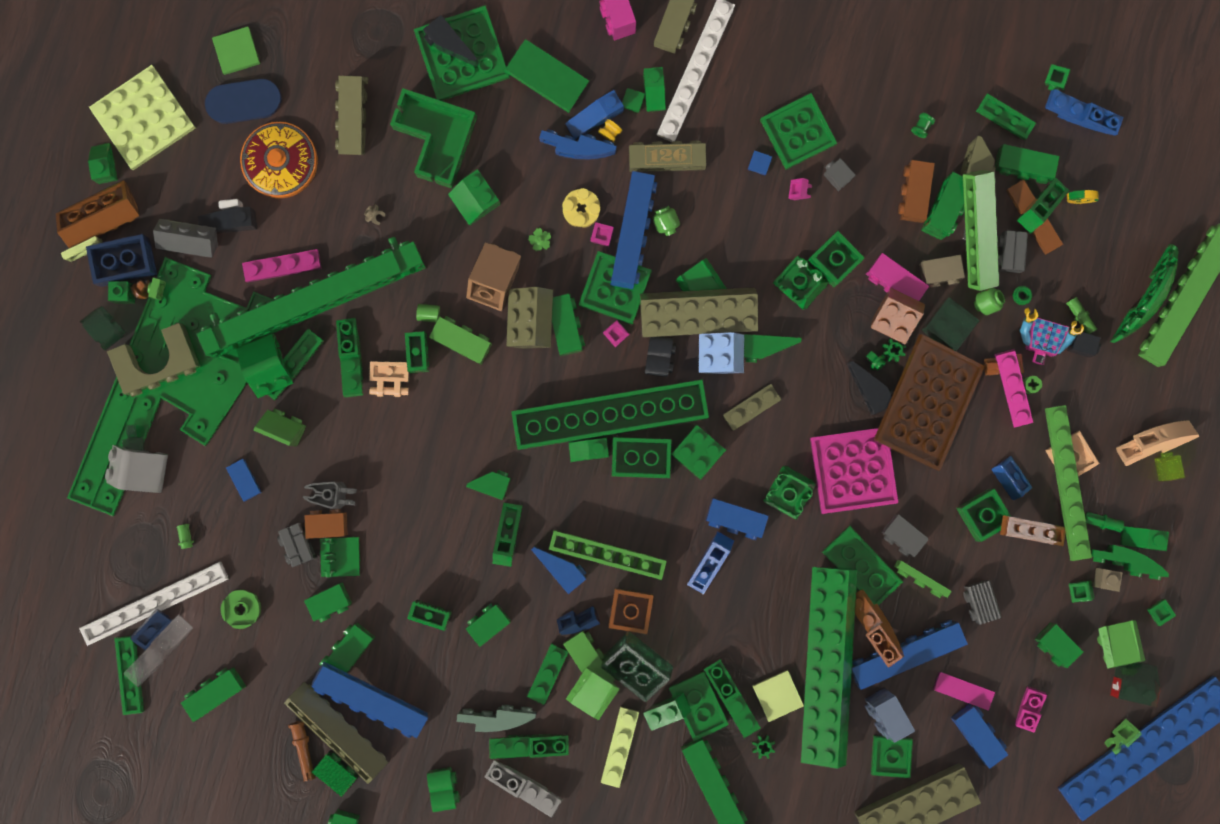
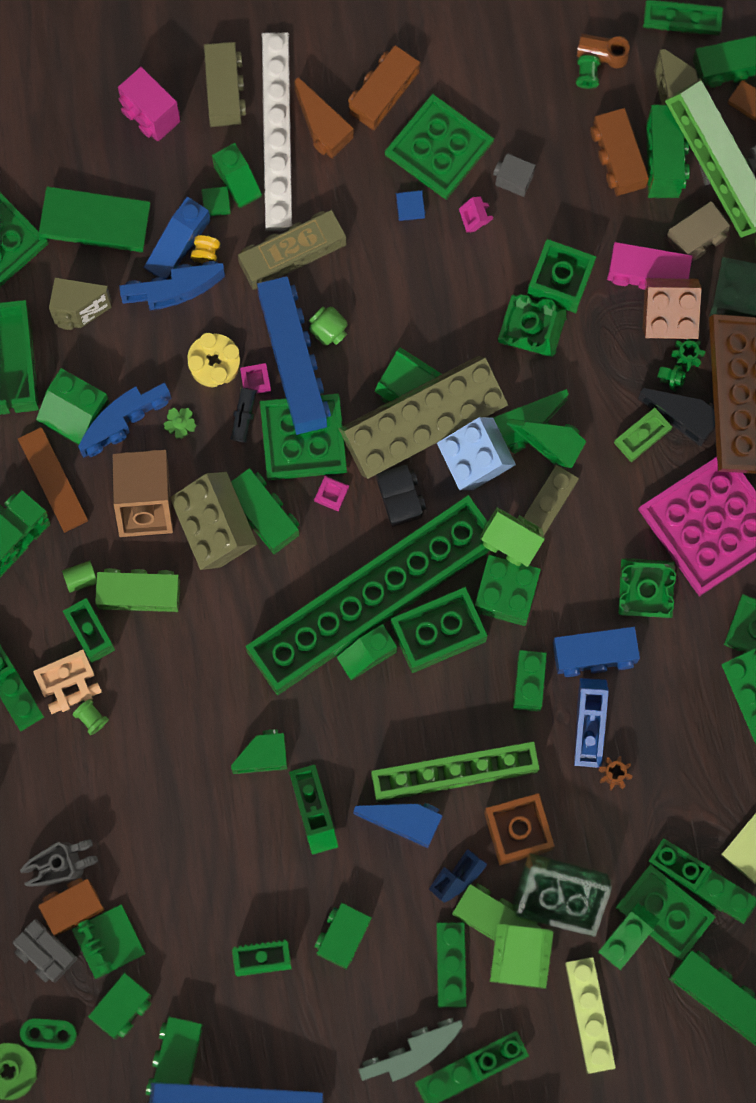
camera: 25 degrees left, 10 degrees down
(276, 597) = (48, 1034): none -> green plate
(393, 408) = (90, 717): none -> bright green bush
(440, 240) = (52, 479): none -> dark orange tile
(495, 220) = (112, 421): none -> blue slope
(508, 129) = (77, 303): none -> olive slope
(582, 255) = (243, 414): none -> black pin
(684, 518) = (529, 681): none -> green brick
(710, 597) = (622, 769): none -> dark orange gear
(717, 422) = (512, 536): none -> bright green brick
(730, 86) = (326, 127): none -> dark orange slope
(775, 367) = (555, 442): none -> green slope
(781, 72) = (383, 87): none -> dark orange brick
(837, 390) = (643, 434): none -> bright green plate
(939, 113) = (603, 49): none -> dark orange piece

